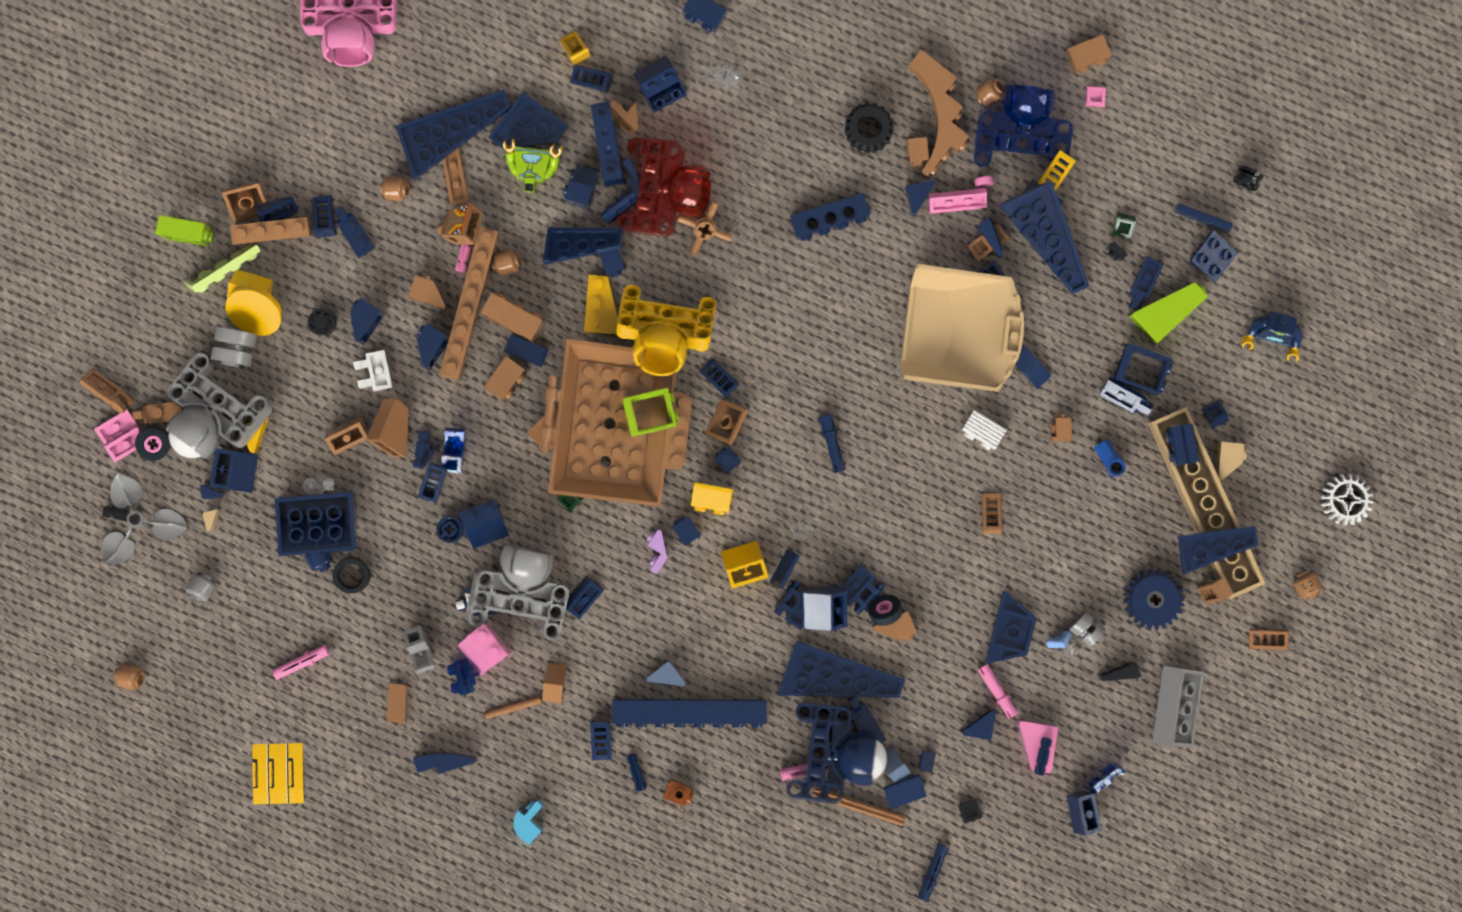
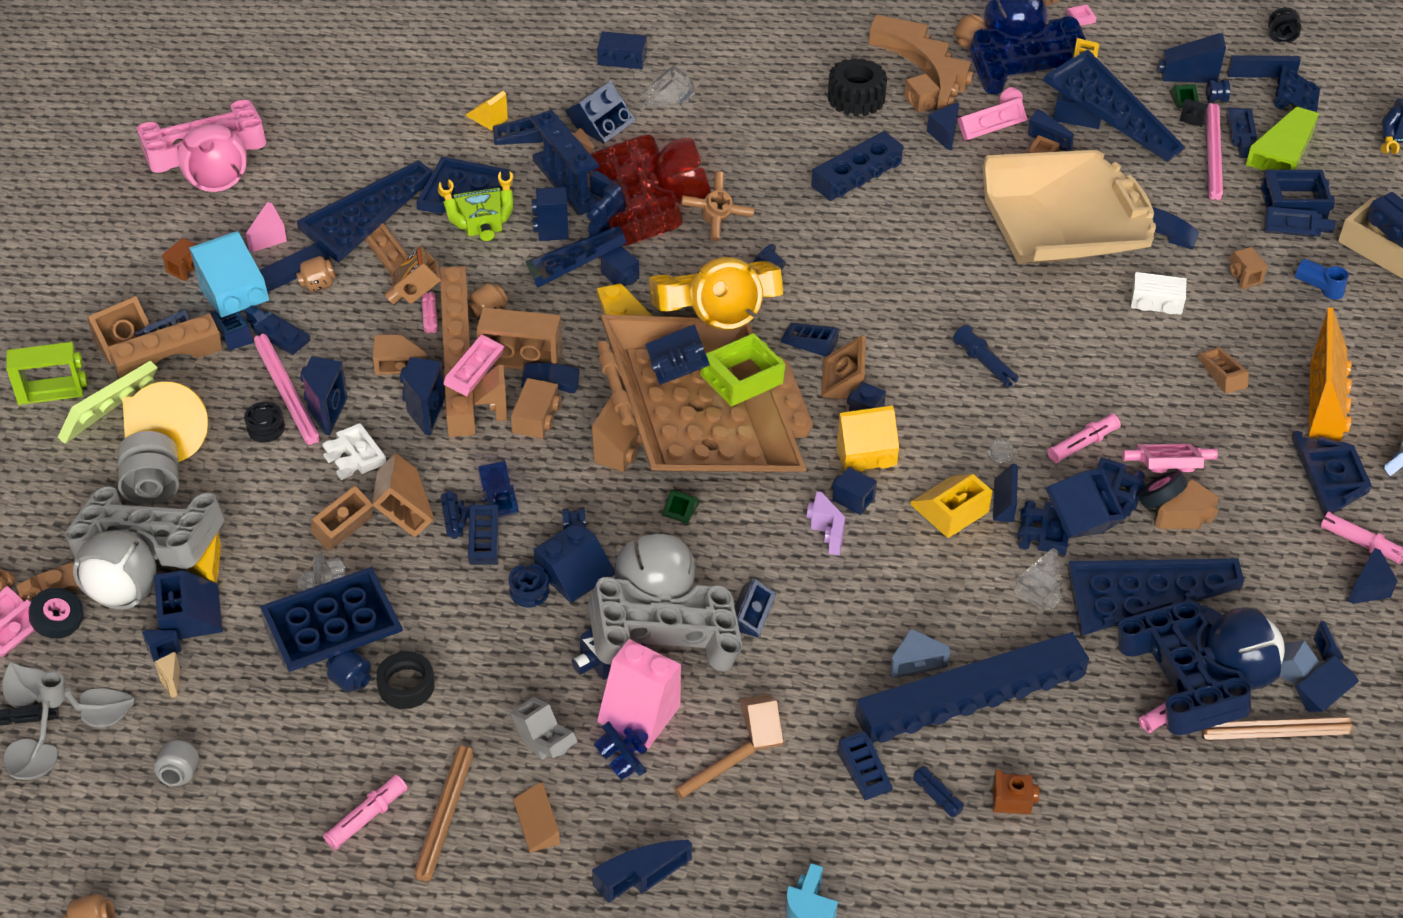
camera: 20 degrees left, 40 degrees down
(305, 137) = (179, 260): none -> dark orange brick
(330, 178) = (228, 274): none -> medium azure slope
(345, 291) = (286, 389): none -> bright pink axle
(346, 678) = (443, 814): none -> medium nougat axle
(373, 125) = (266, 229): none -> bright pink slope
(379, 170) = (286, 268): none -> dark blue tile
(469, 342) = (473, 365): none -> bright pink plate
(476, 362) = (492, 391): none -> medium nougat slope
(496, 488) = (571, 517): none -> dark blue wheel
(606, 390) = (677, 354): none -> dark blue hinge
(721, 296) = (770, 255): none -> dark blue piece
(770, 651) = (1040, 583): none -> clear slope
(862, 540) = (1106, 425): none -> bright pink pin
(906, 583) = (1170, 456): none -> bright pink plate
(1048, 565) = (1329, 382): none -> light orange slope
(1111, 295) = (1214, 156): none -> bright pink axle
(1146, 196) = (1193, 61): none -> dark blue slope
(1150, 233) = (1218, 91): none -> dark blue wheel

